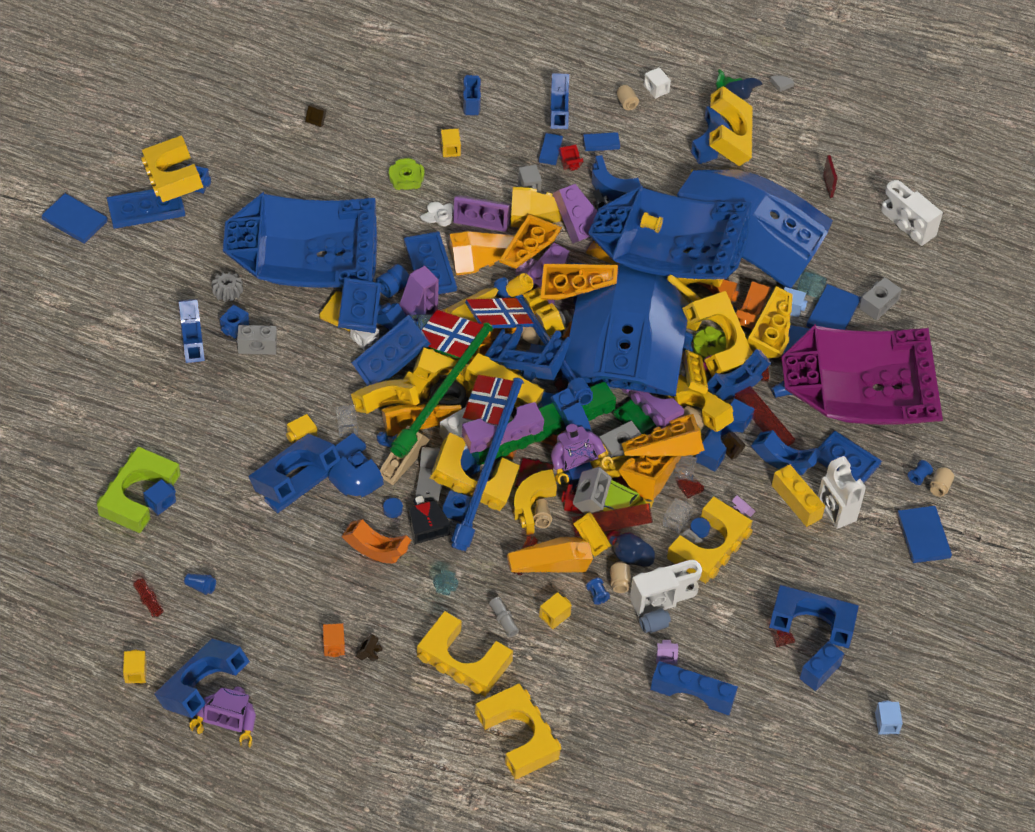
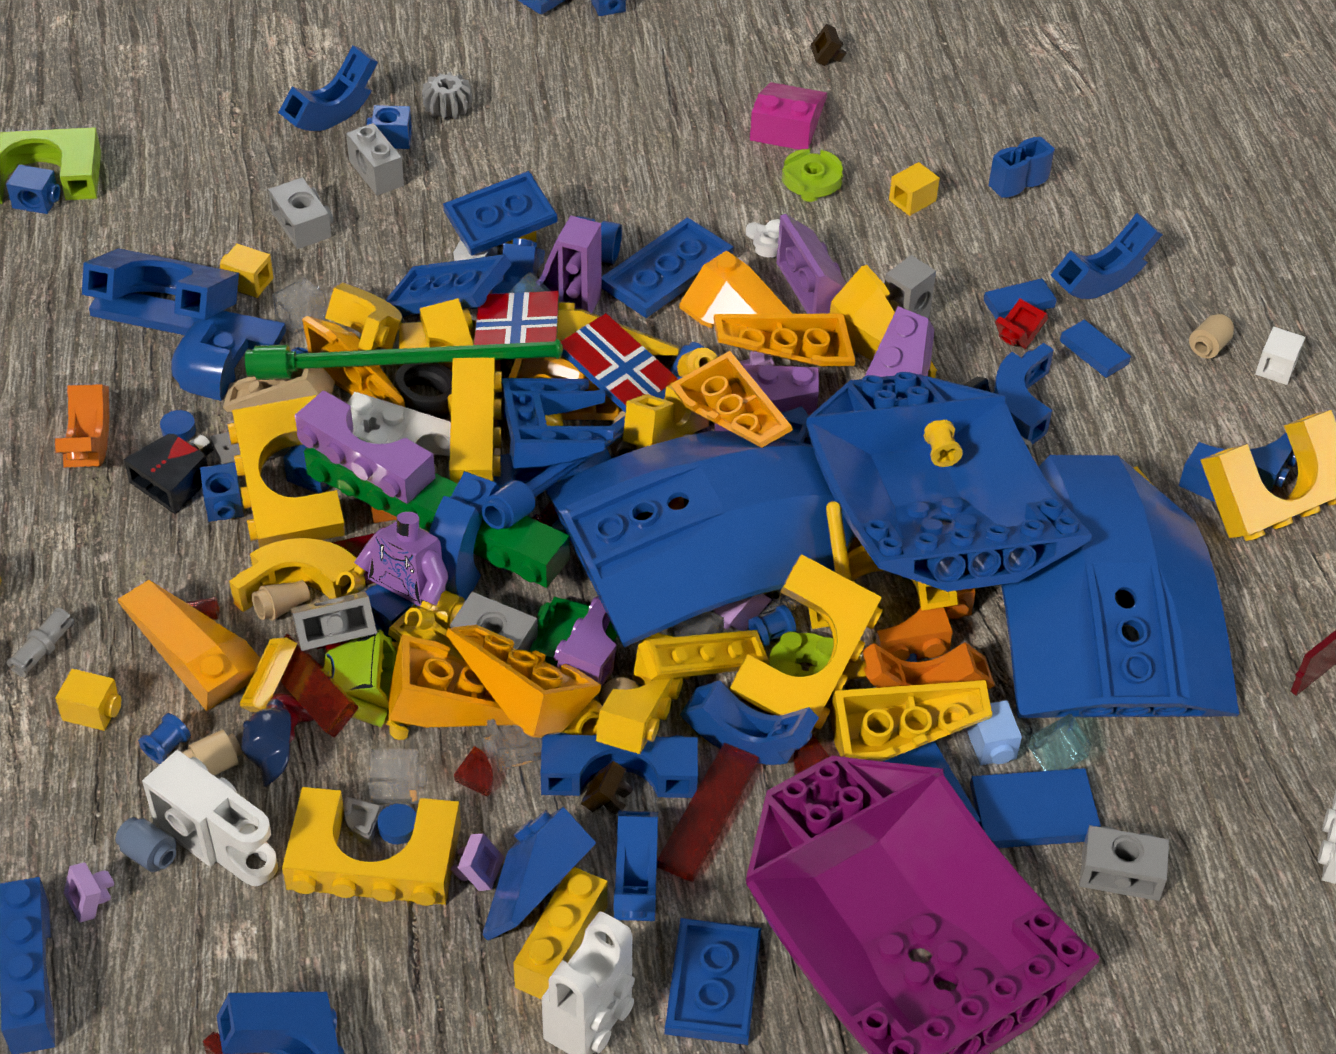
camera: 60 degrees right, 5 degrees down
(273, 390) = (300, 212): none -> light grey brick
(282, 236) = (577, 96): blue wedge -> none
(354, 158) = (786, 115): none -> dark pink slope
(445, 582) = (61, 540): clear light blue gear -> none
(493, 403) = (174, 515): flag -> none
(769, 487) = (534, 867): none -> blue slope

